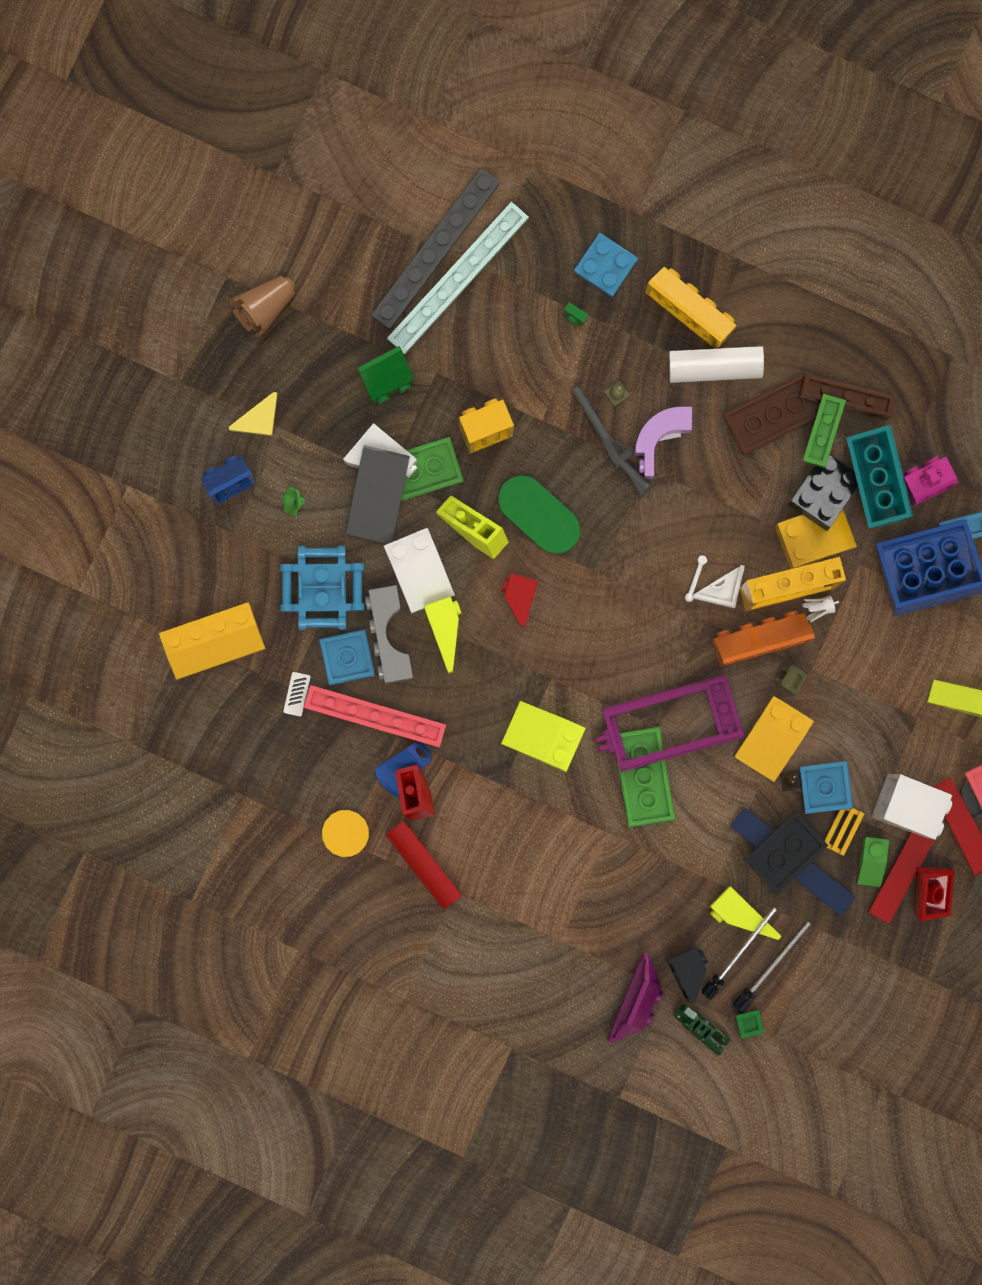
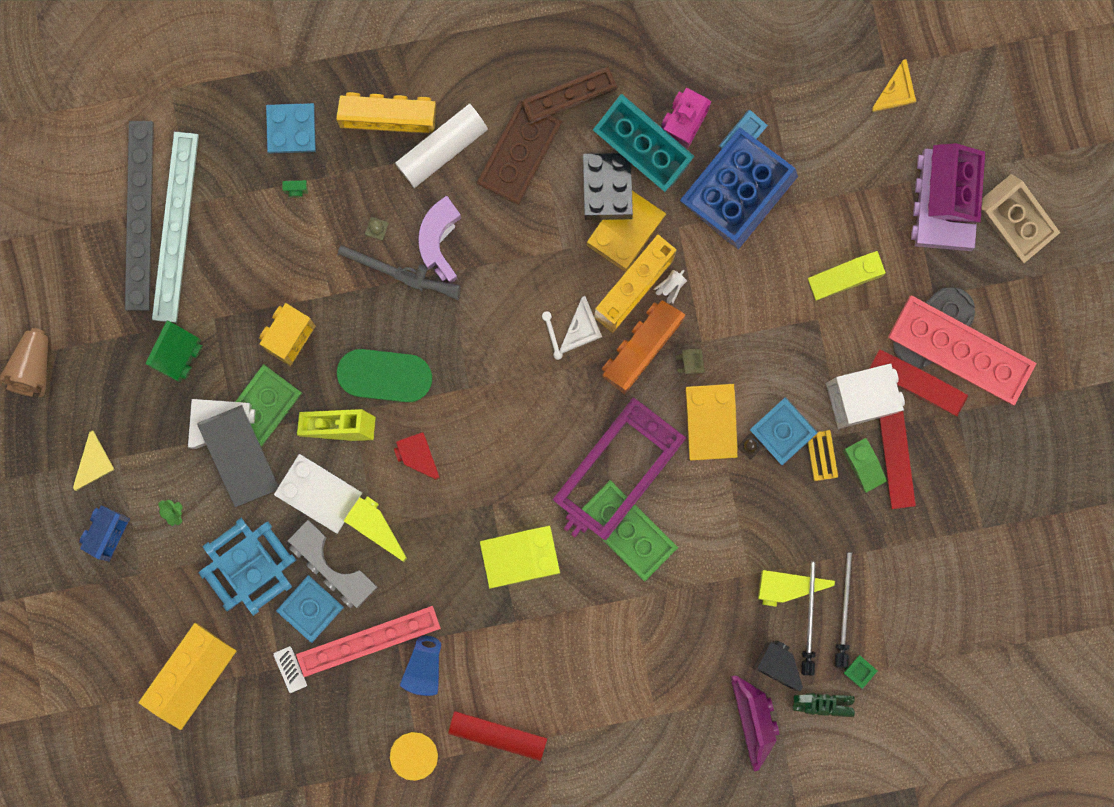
camera: 30 degrees left, 0 degrees up
(414, 793) = (447, 682): red slope -> none
(786, 852) = (789, 509): black plate -> none
(811, 877) = (799, 512): dark blue tile -> none
(824, 431) = (570, 137): bright green plate -> none
(933, 893) = (934, 454): red slope -> none

